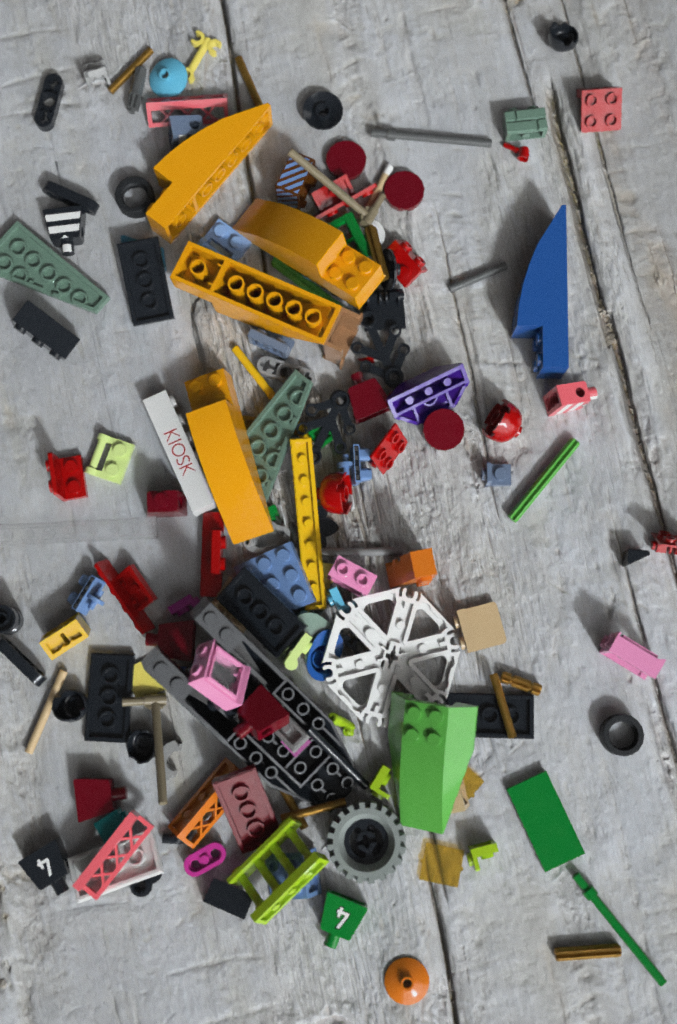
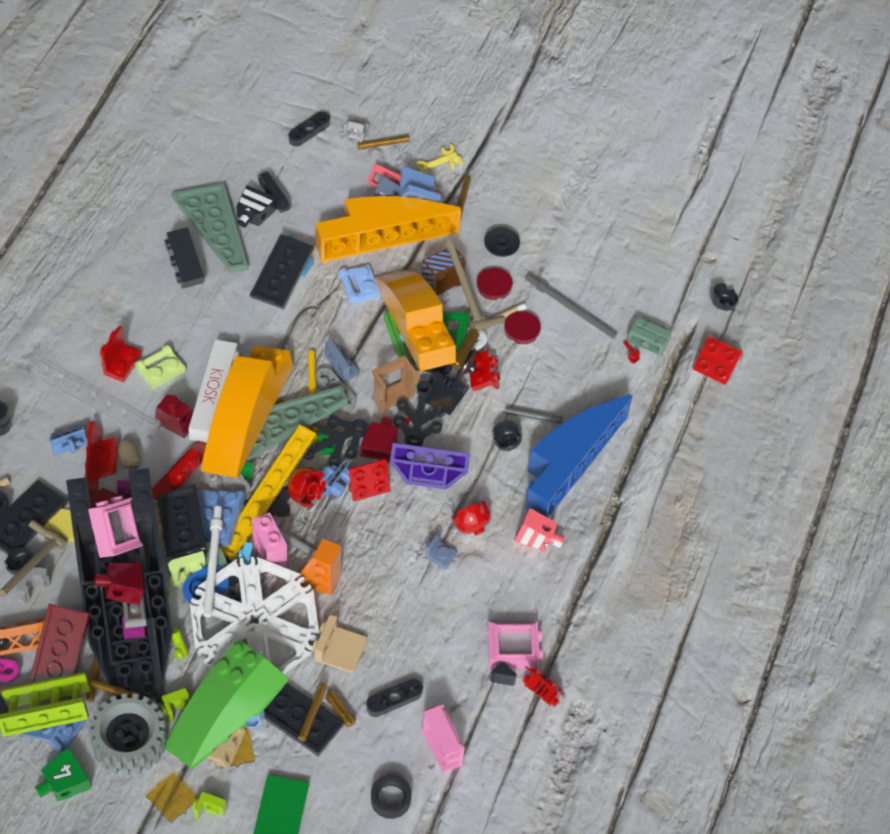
camera: 30 degrees right, 25 degrees down
(65, 636) = (28, 453): yellow brick -> none
(127, 184) = (317, 207): black tyre -> none
(136, 91) = (377, 155): dark grey piece -> none
(154, 571) = (129, 455): none -> dark tan brick
(173, 83) = (406, 157): medium azure dish -> none
(209, 105) = (417, 185): none -> medium blue bracket
(254, 295) = (348, 316): light orange slope -> none
(295, 595) = (215, 527): none -> white bar
(328, 203) = (458, 301): red bracket -> none
(443, 429) = (423, 497): dark red tile -> none
(474, 317) = (507, 435): none -> black hair
(542, 481) = (474, 579): bright green axle -> none
(559, 624) = (378, 698): none -> black beam
(624, 520) = (514, 644): none -> bright pink window

